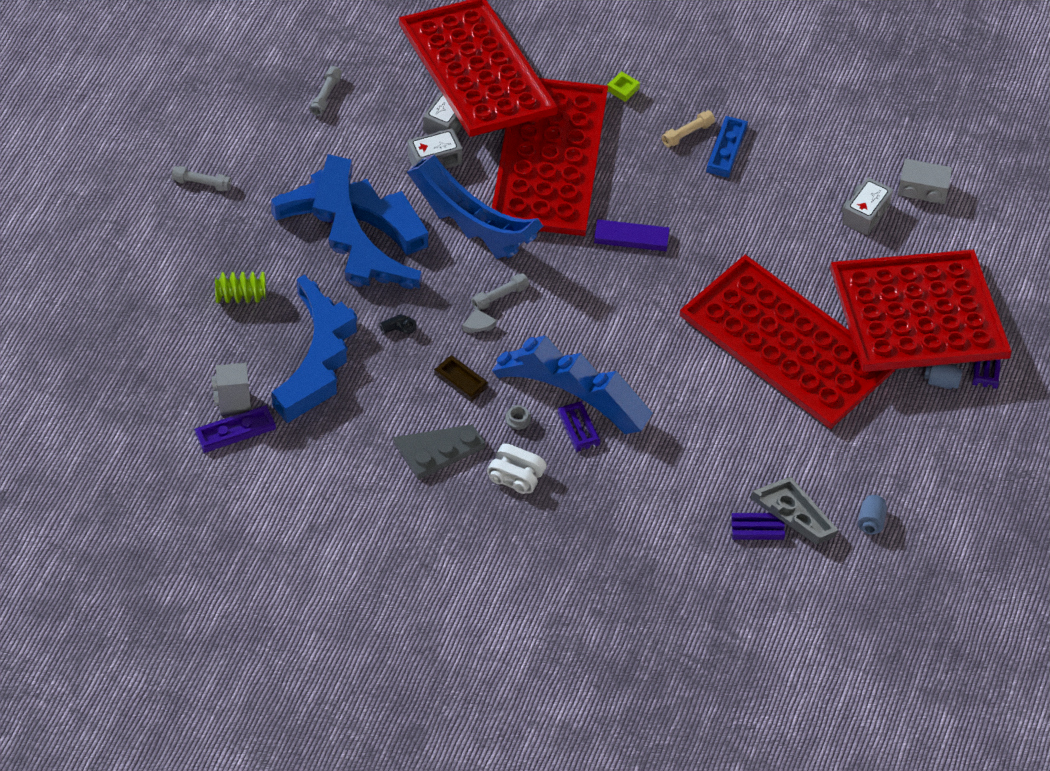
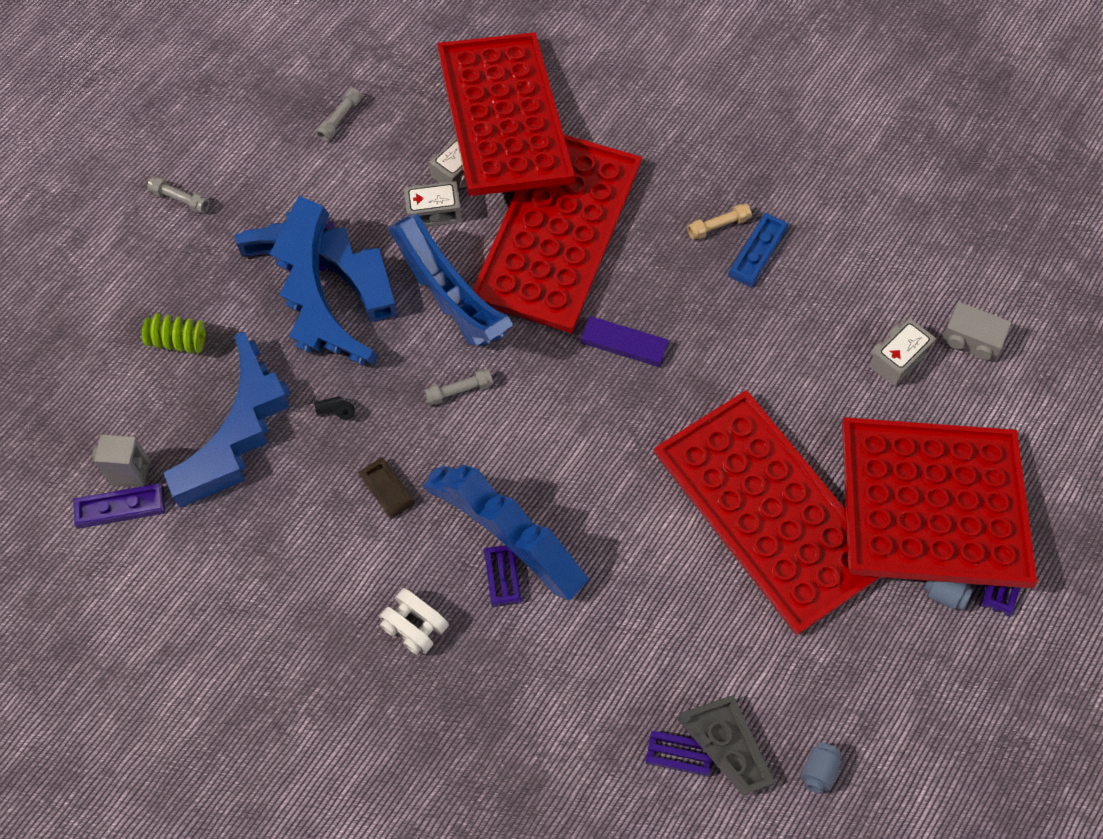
camera: 15 degrees right, 10 degrees up
(438, 448) = (333, 575): dark grey wing -> none
(479, 322) = (424, 421): light grey tile -> none
(518, 412) = (435, 544): light grey plate -> none
(623, 86) = (659, 159): lime plate -> none

